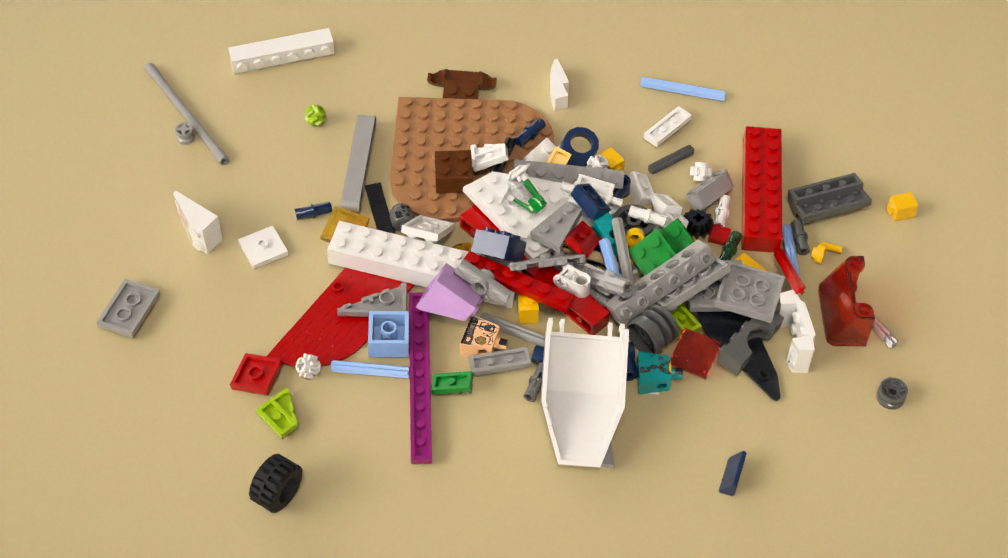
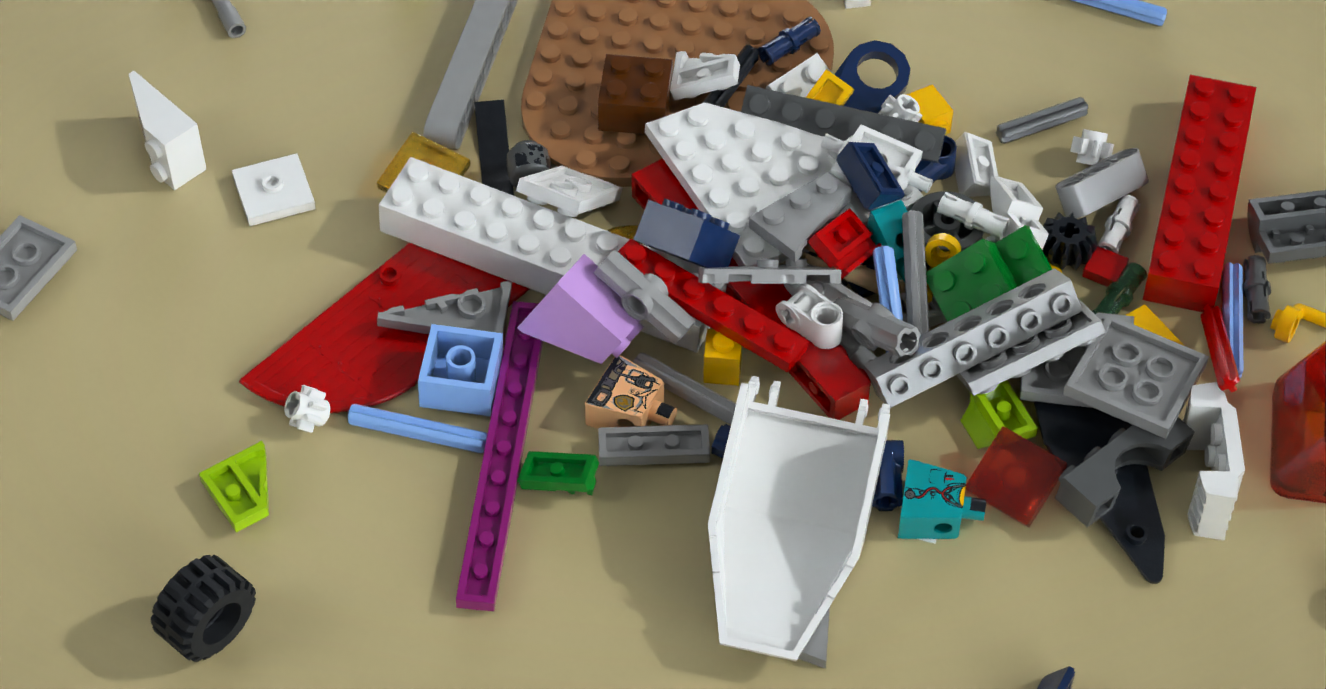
camera: 10 degrees right, 0 degrees up
(256, 374) = (214, 411): red plate -> none
(313, 210) = (374, 135): dark blue axle -> none
(532, 391) = (701, 505): dark grey pin -> none
(536, 202) = (770, 164): plant -> none
(653, 329) = (944, 423): dark grey wheel -> none
(667, 126) = (1046, 60): white plate -> none

